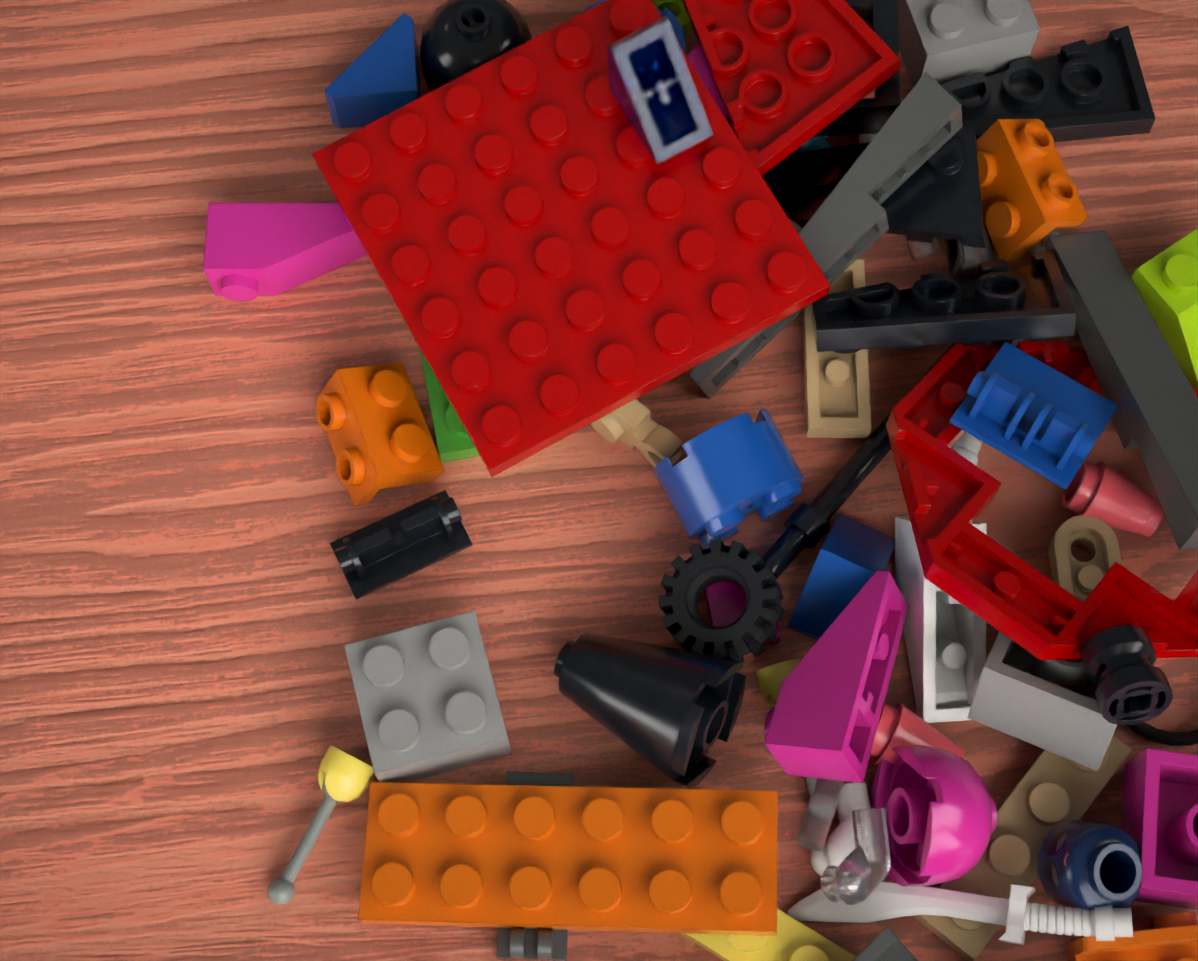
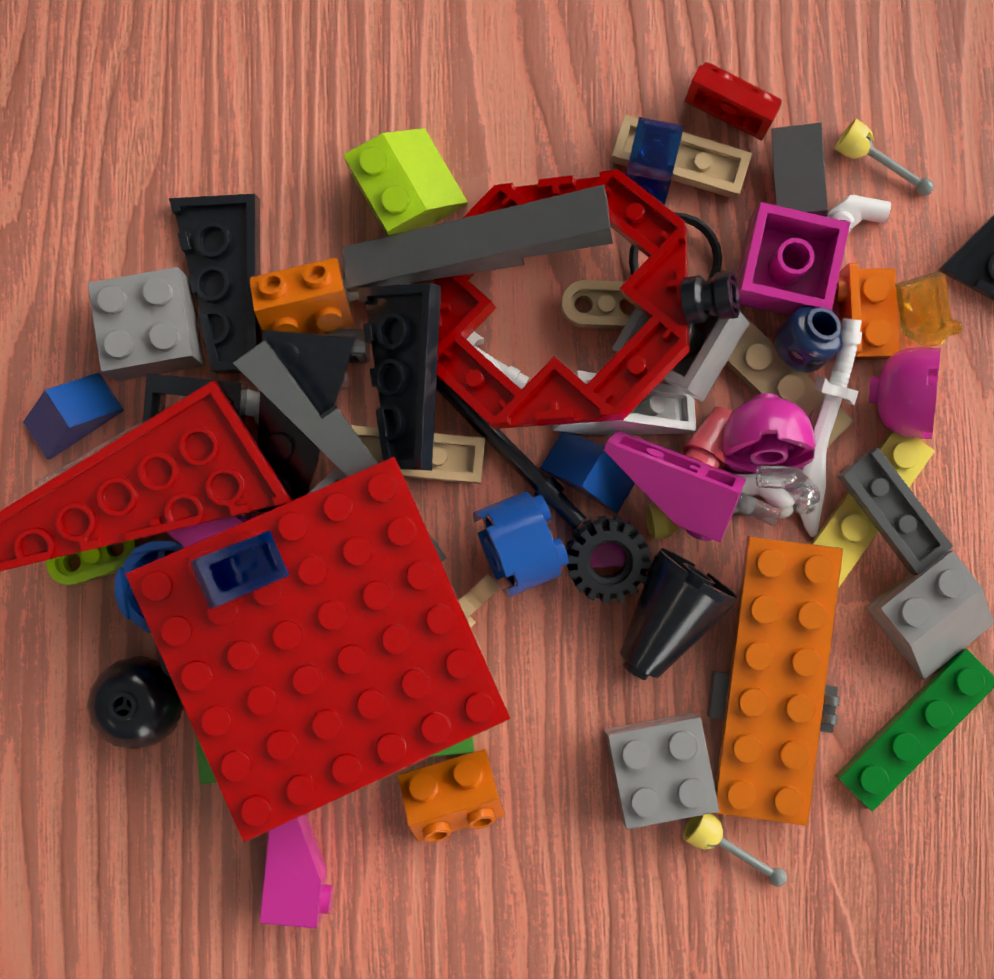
camera: 85 degrees left, 15 degrees up
(379, 79) = (156, 779): blue slope -> none
(401, 544) = (538, 784): black hinge -> none
(1034, 414) = (501, 323): blue hinge -> none
(1113, 499) = (548, 281): coral cone -> none

